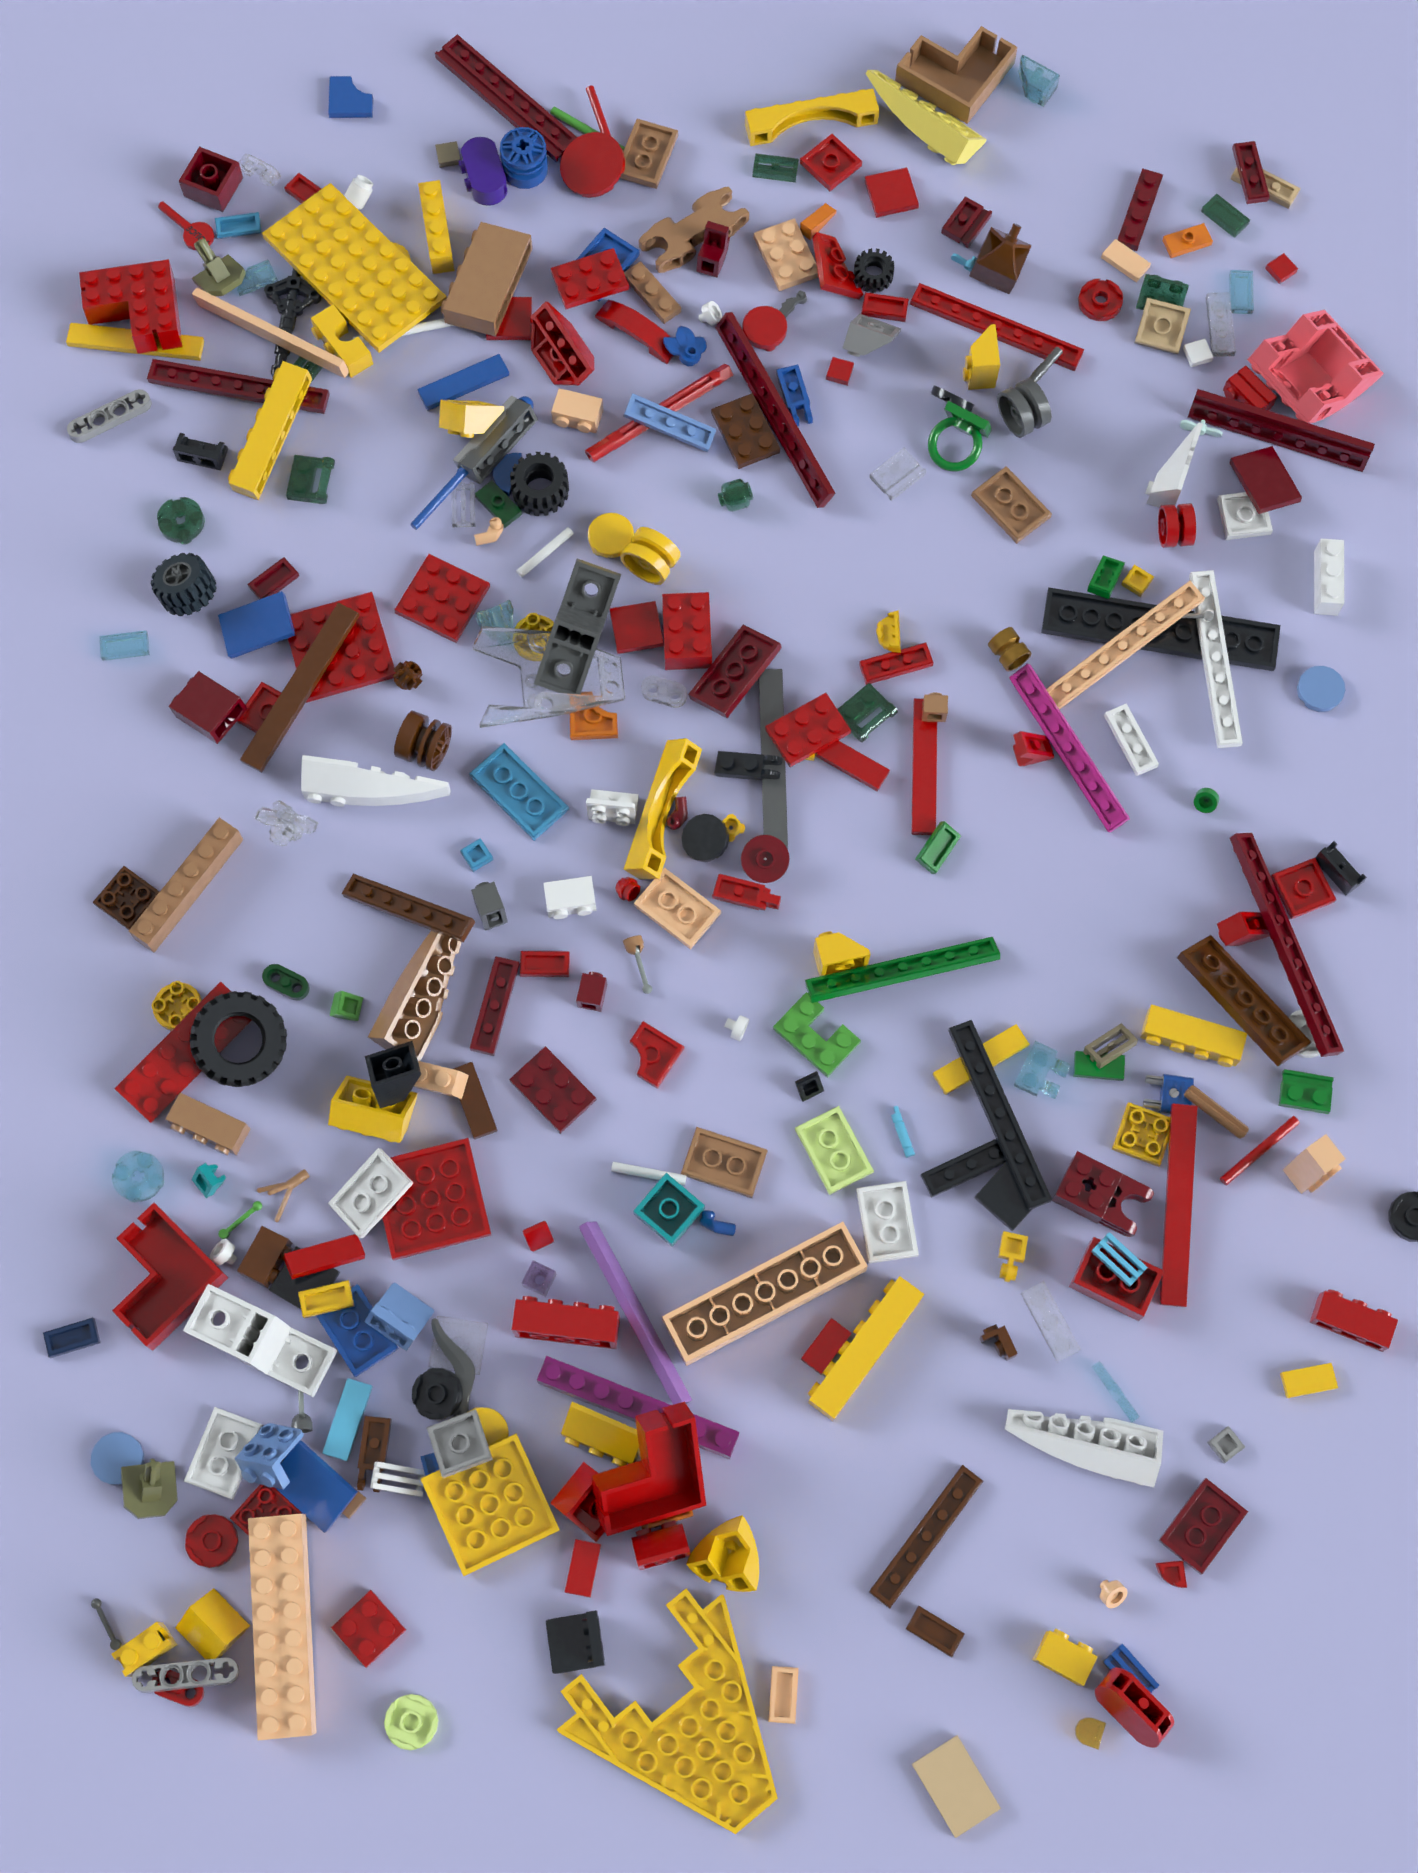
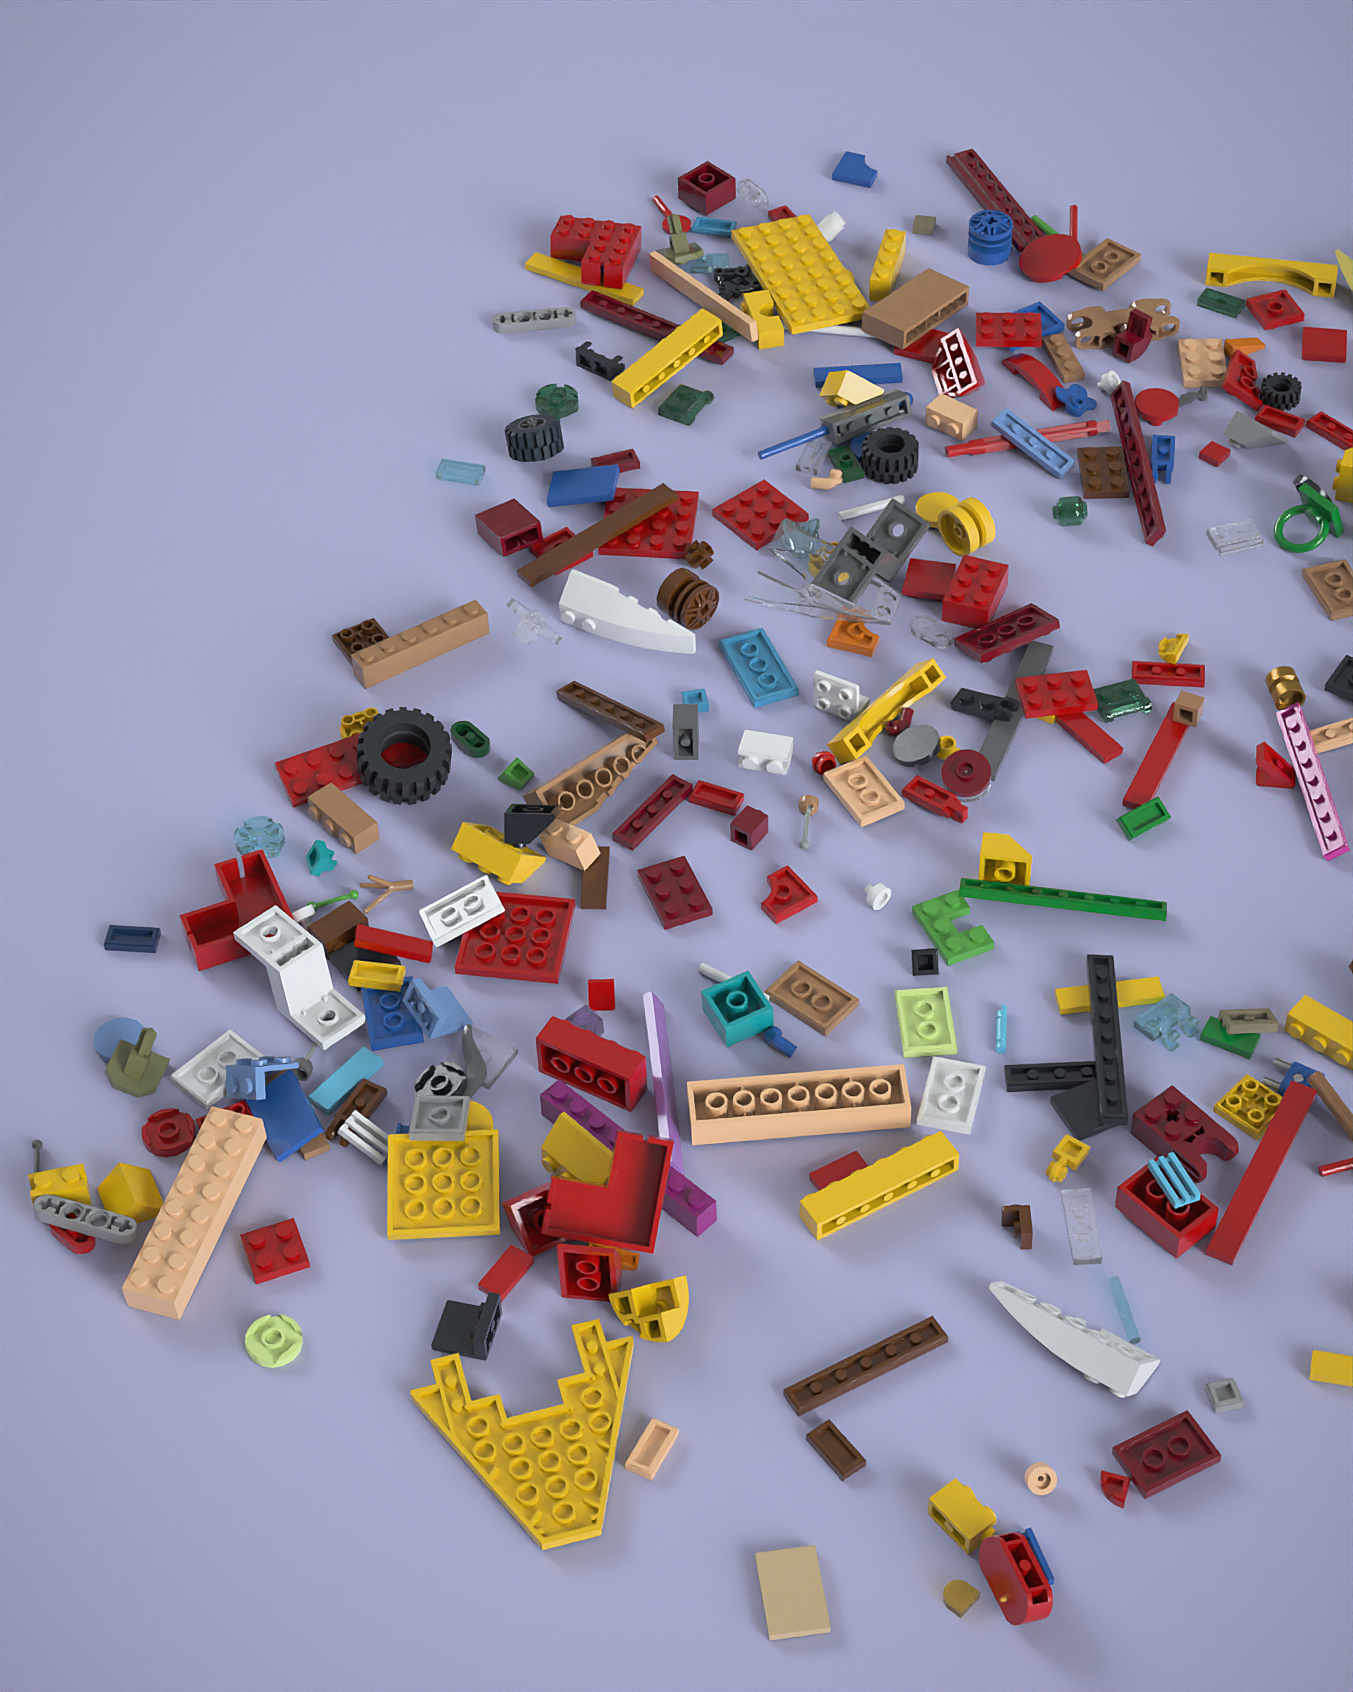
camera: 25 degrees right, 25 degrees down
(483, 171) = (949, 240): dark purple brick -> none

